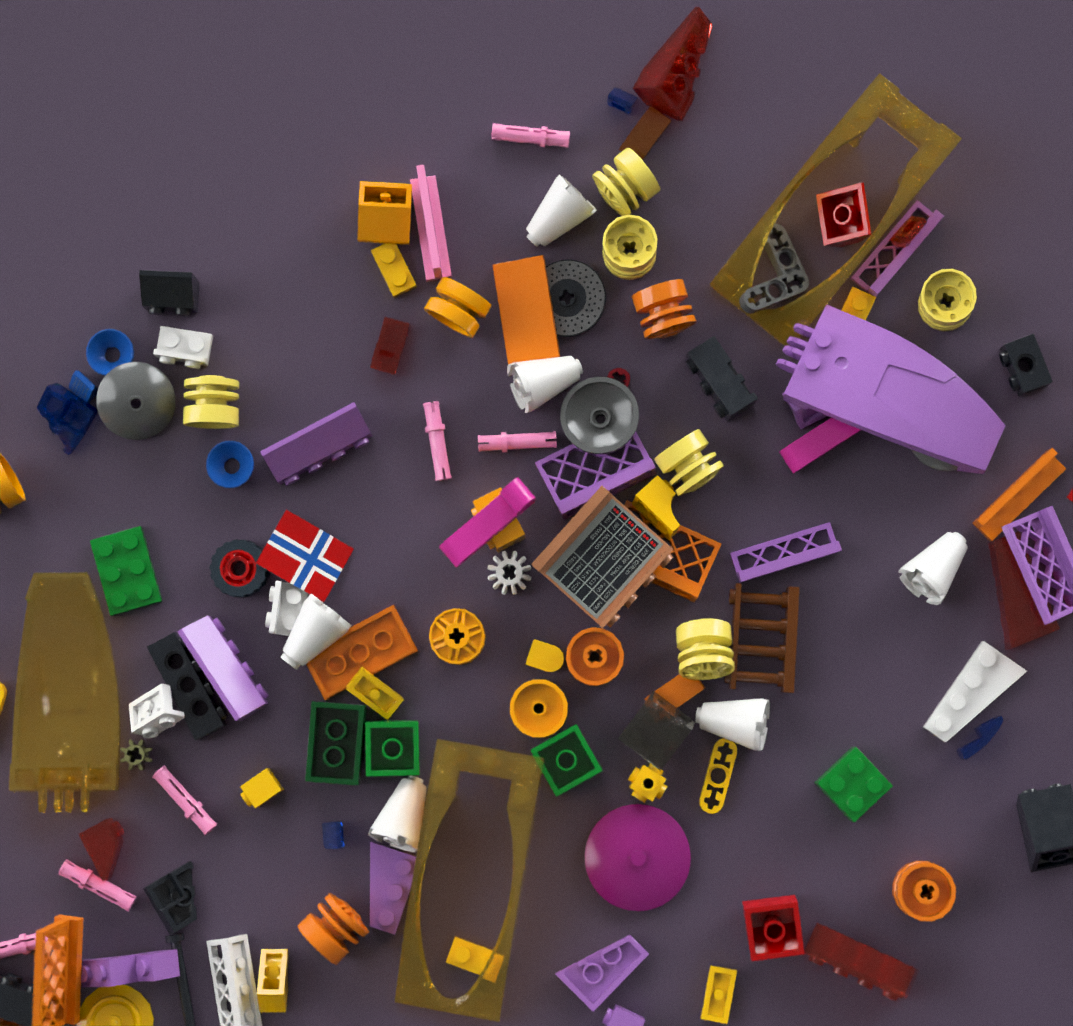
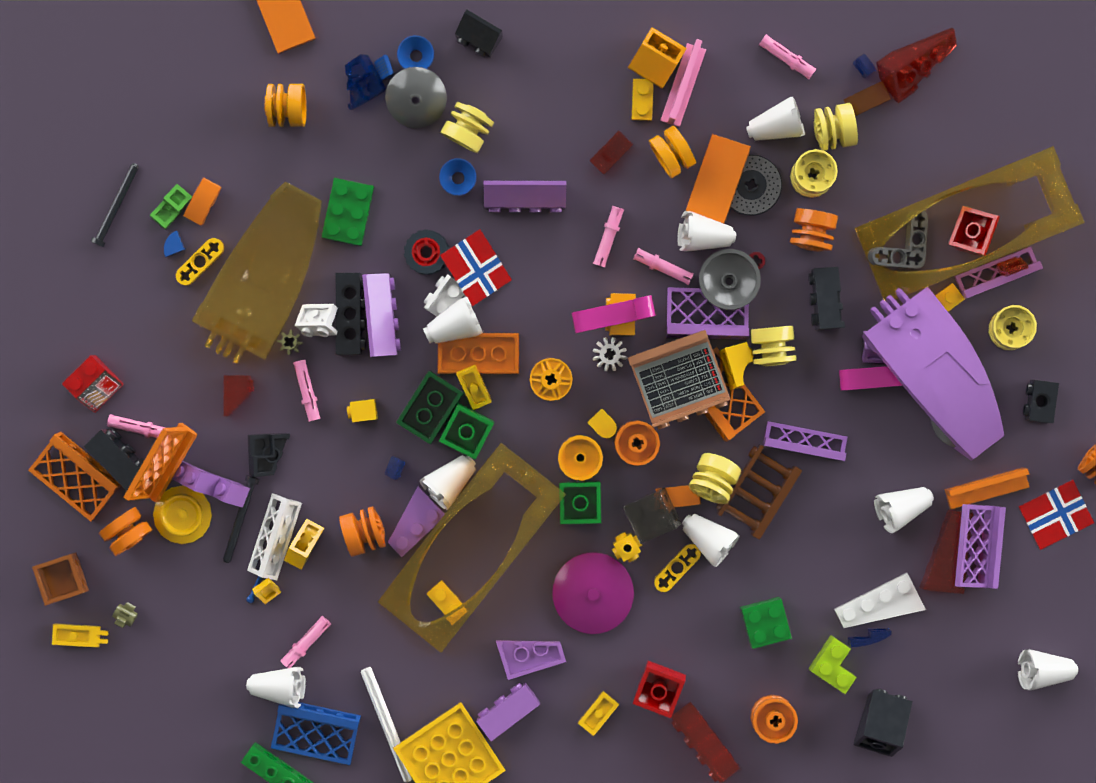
camera: 25 degrees right, 5 degrees up
(93, 883) = (213, 409): bright pink pin -> none
(183, 346) = (468, 76): white bracket -> none
(950, 792) = (828, 663): none -> lime brick

